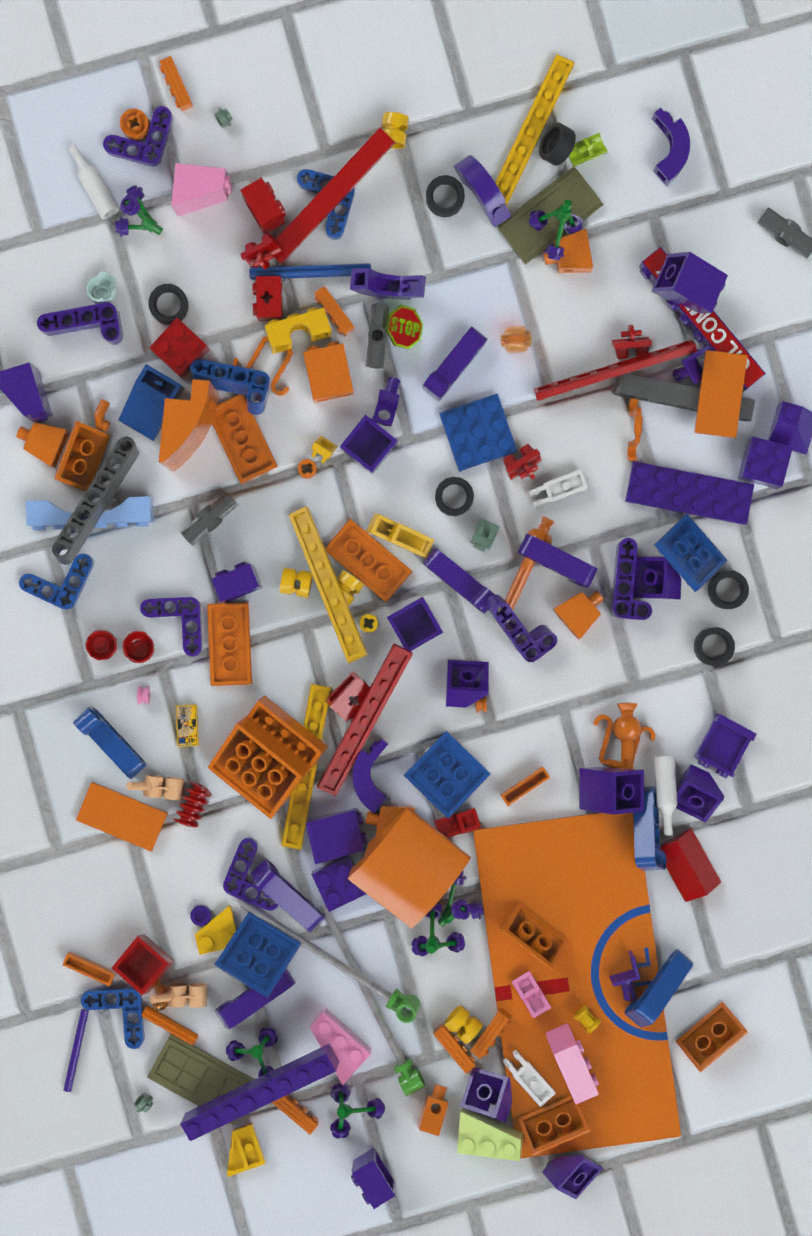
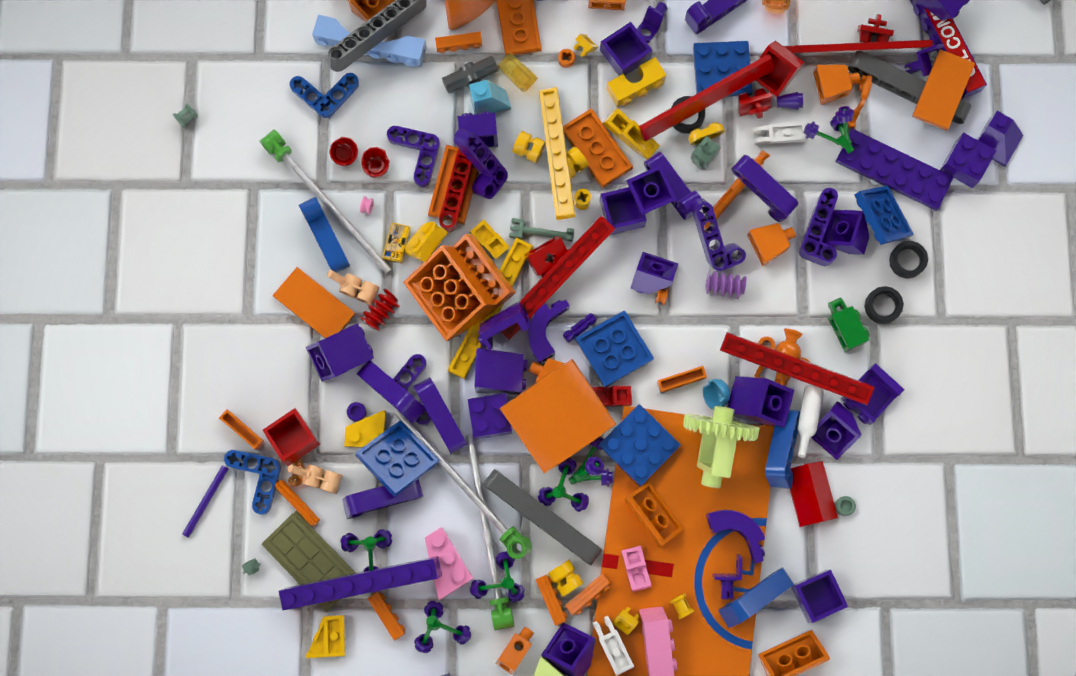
camera: 15 degrees right, 10 degrees down
(25, 657) = (275, 144): none -> flat silver piece
(165, 862) = (340, 352): none -> dark purple slope
(186, 484) = (458, 42): none -> orange piece
(217, 719) = (425, 241): none -> yellow slope
(228, 659) = (455, 195): none -> red beam
(229, 888) = (391, 391): none -> dark purple beam
(238, 542) = (488, 97): none -> medium azure slope
(259, 502) = (517, 72): none -> clear yellow slope
(265, 625) = (492, 172): none -> dark purple beam
(283, 693) = (489, 239): none -> yellow slope
(314, 672) = (521, 229): none -> sand green hinge
(324, 785) = (501, 321): none -> dark purple panel
(404, 761) = (579, 327): none -> dark purple axle
(405, 465) = (624, 91): none -> yellow arch
(414, 1051) = (514, 591): none -> dark purple plant
(422, 968) = (542, 517): none -> dark grey beam
(438, 599) = (651, 190): none -> dark purple slope
(470, 477) = (706, 97): none -> red tile
(486, 506) = (712, 131): none -> yellow plate
(500, 869) = (639, 445): none -> blue plate
(535, 421) = (785, 68): none -> red piece
(535, 1051) = (625, 621): none -> yellow tile
(544, 673) = (725, 284): none -> medium lavender piece
(560, 449) = (790, 101): none -> dark purple cone
(565, 792) = (716, 393): none -> dark azure hair
(580, 840) = (718, 442): none -> yellowish green piece
(602, 414) = (834, 82): none -> orange torso
(617, 919) = (742, 524): none -> dark purple arch
(619, 459) = (838, 123): none -> plant
(640, 745) = (797, 368): none -> red tile
(682, 680) = (847, 325): none -> green brick
(722, 969) = (819, 596): none -> dark purple piece
(725, 867) = (845, 506): none -> sand green tile

